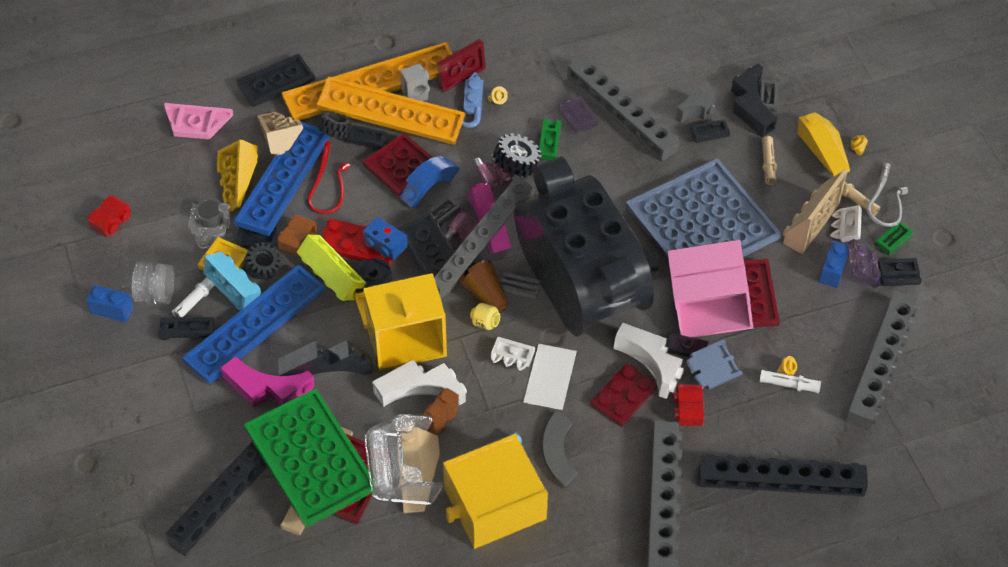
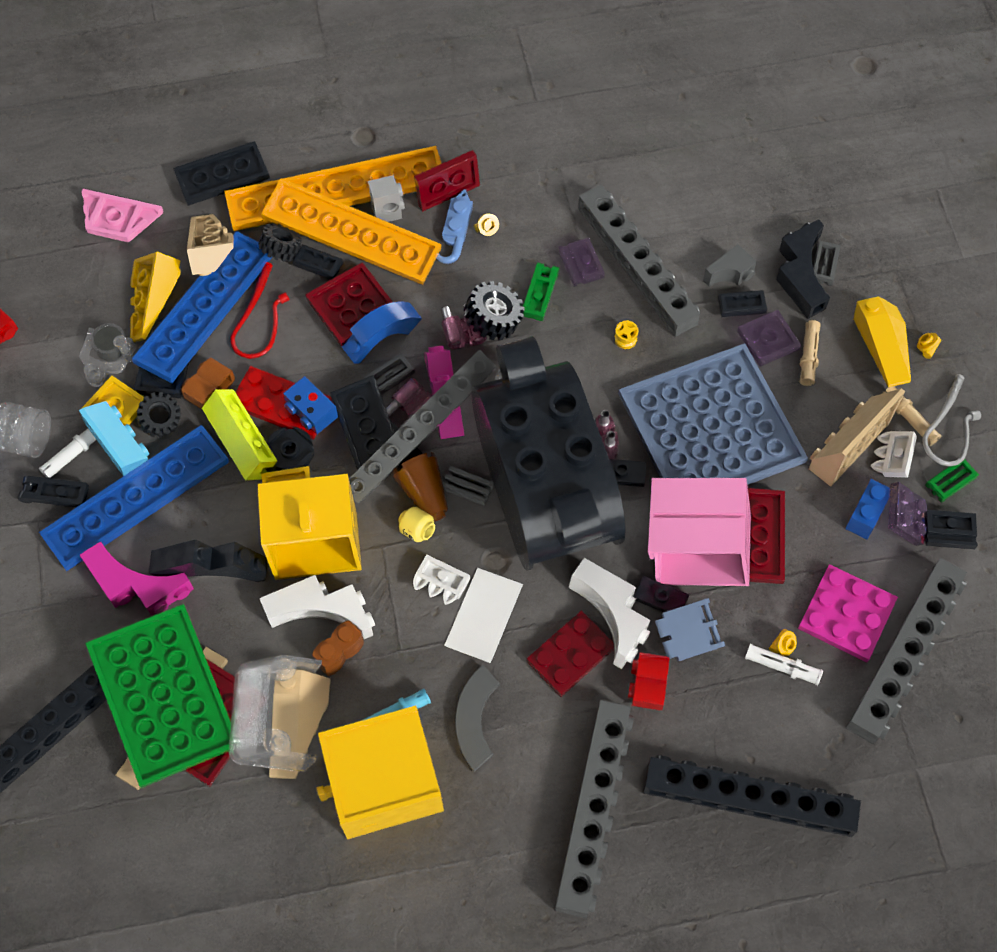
camera: 10 degrees right, 10 degrees up
(623, 163) = (628, 329): none -> yellow wheel
(735, 153) = (768, 338): none -> clear purple plate
(832, 340) = (848, 613): none -> dark pink plate

